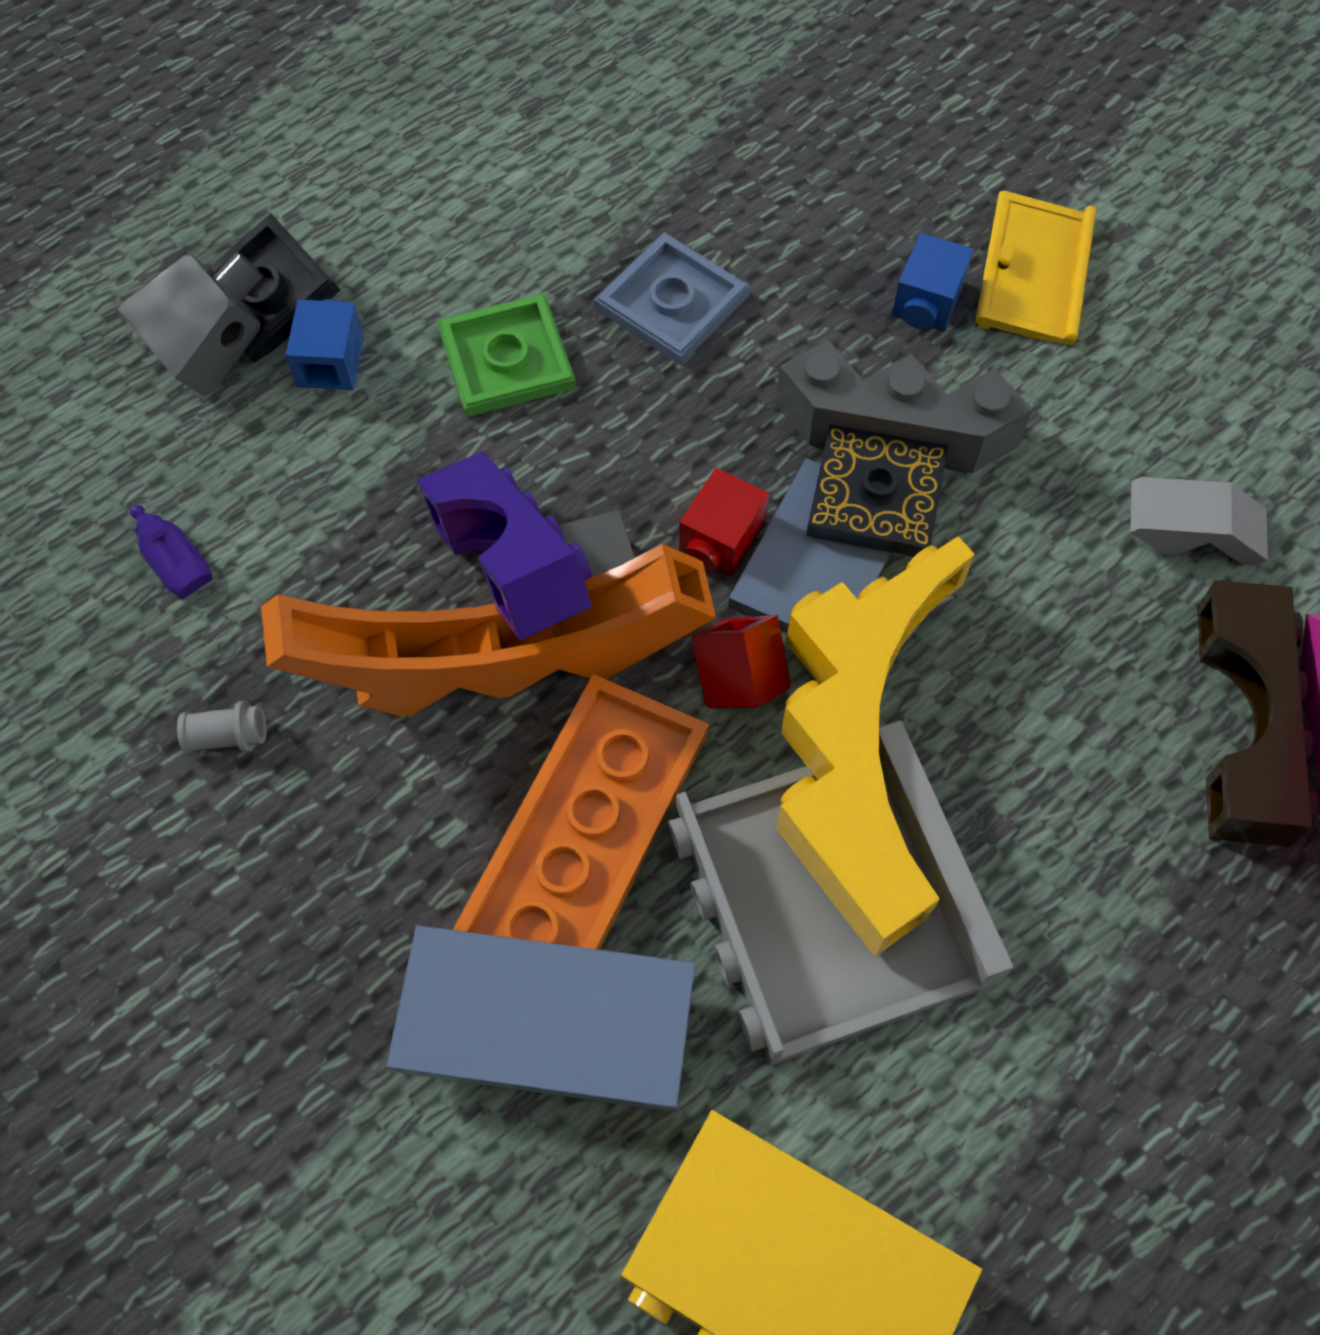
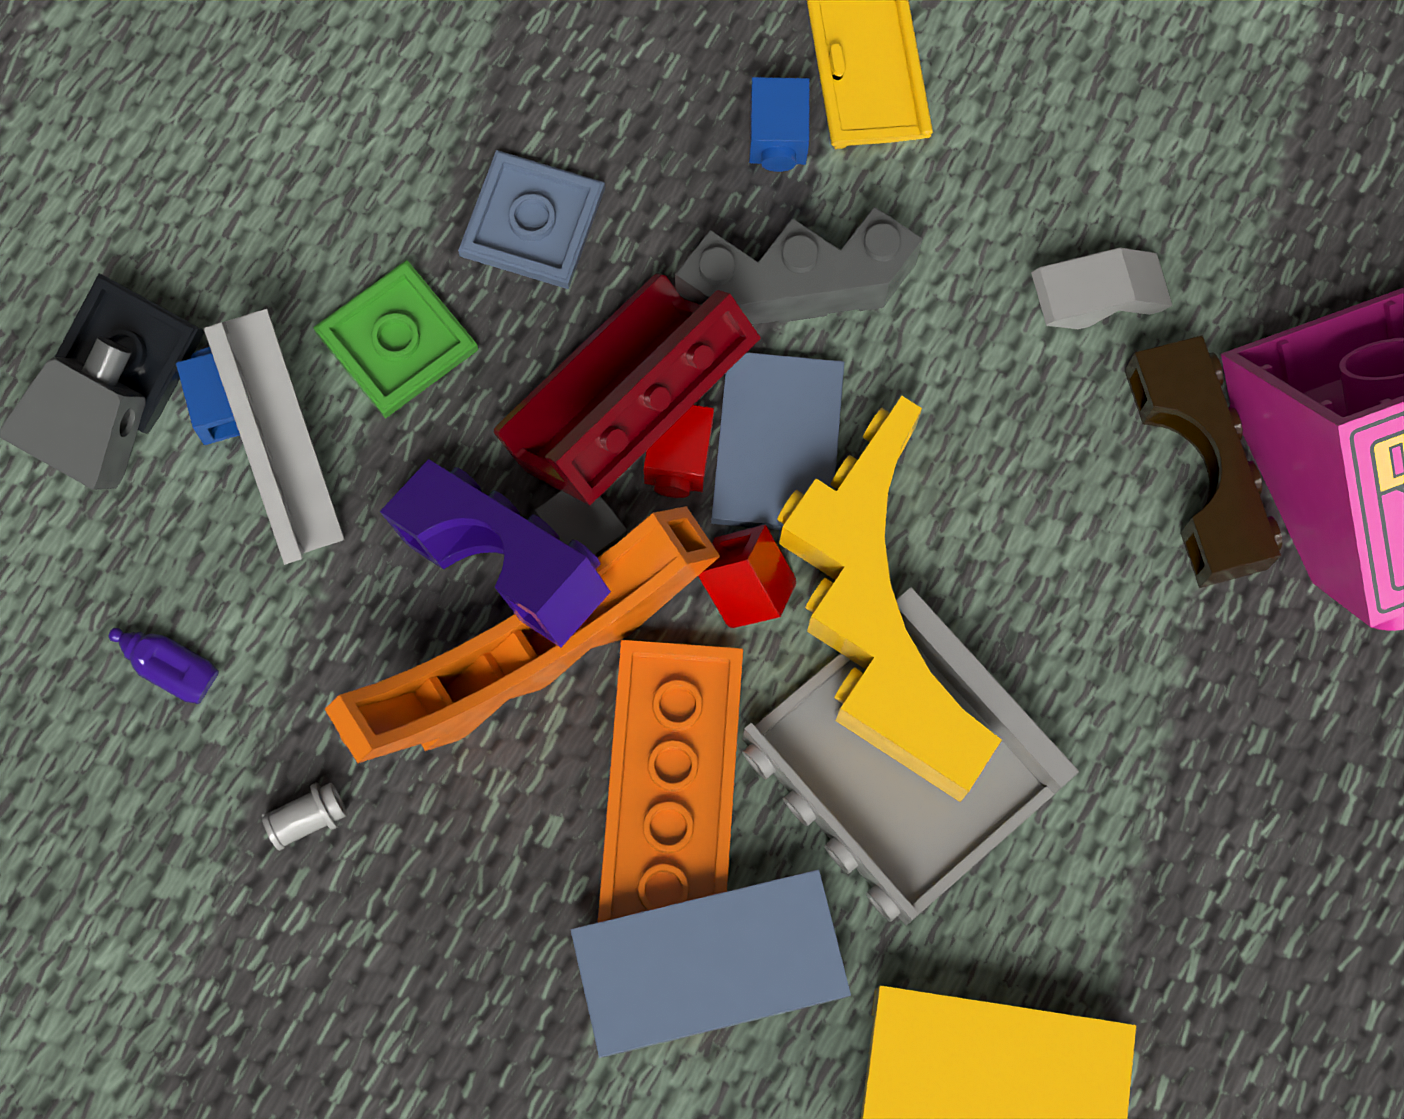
camera: 25 degrees left, 10 degrees up
(349, 379) = (274, 434): none -> light grey fence
(693, 444) = (625, 387): none -> dark red panel
(877, 491) = (809, 366): black plate -> none

